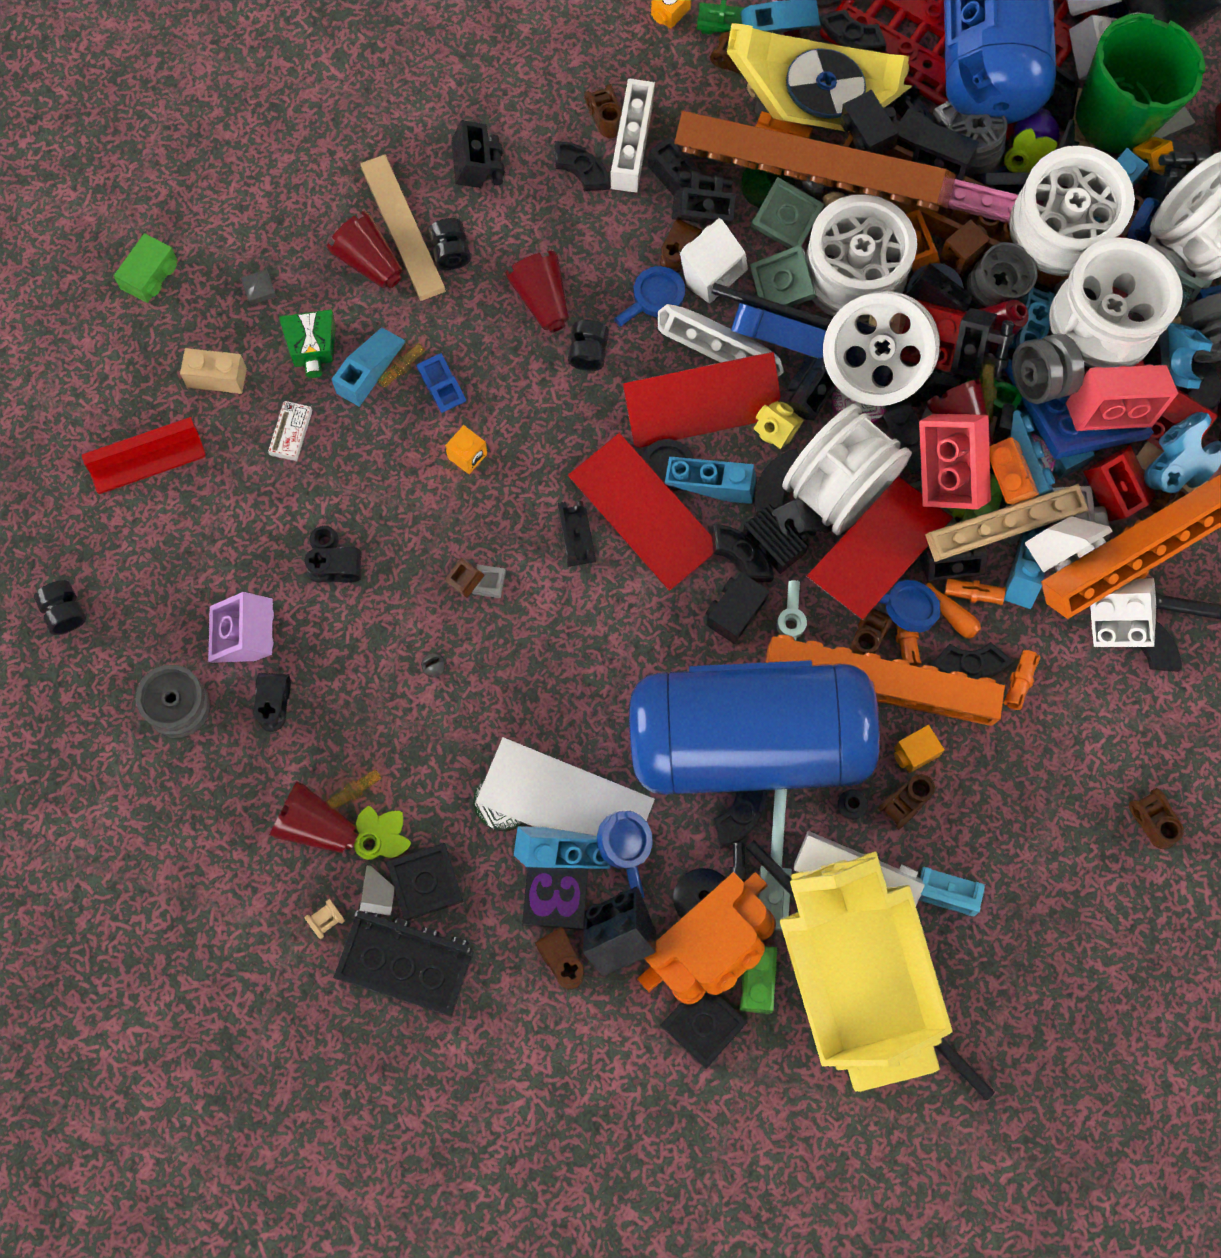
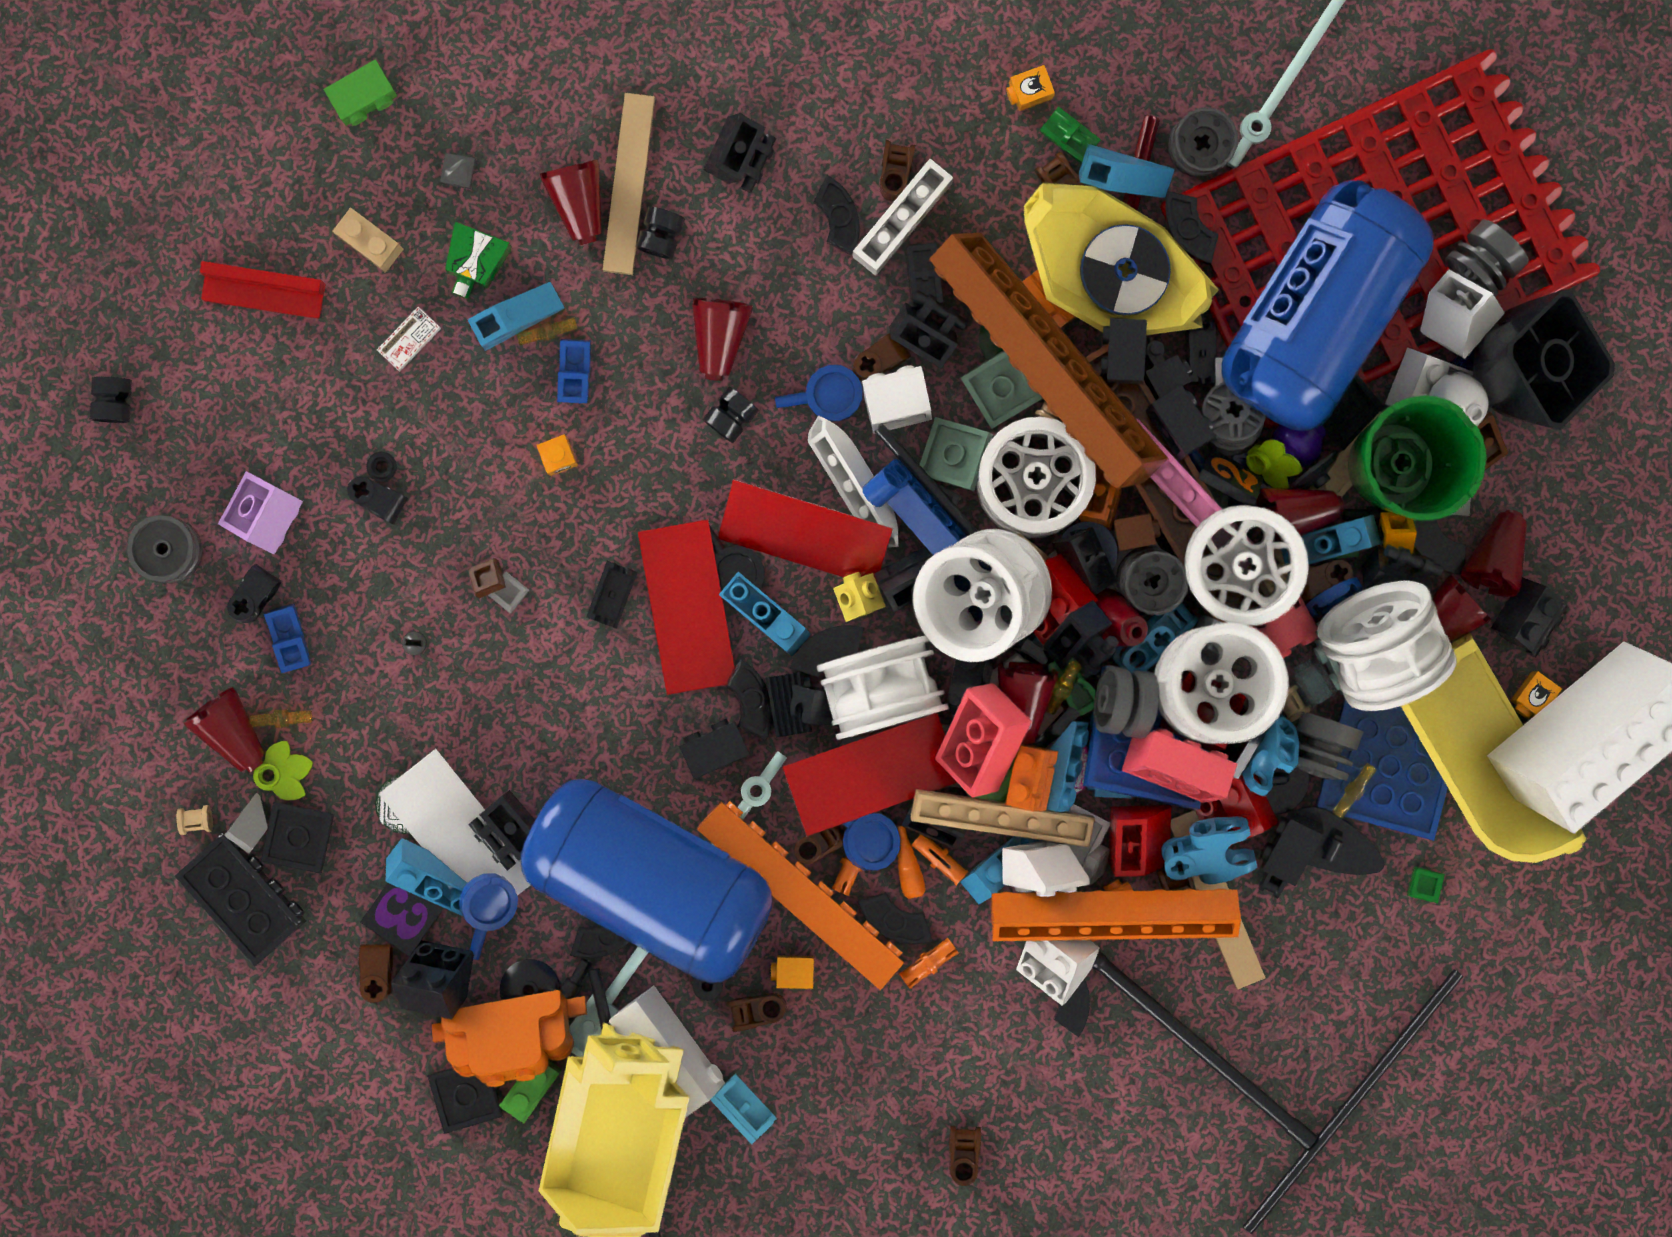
camera: 30 degrees right, 15 degrees up
(321, 720) = (287, 638): none -> blue slope
(606, 761) = (510, 823): none -> black brick

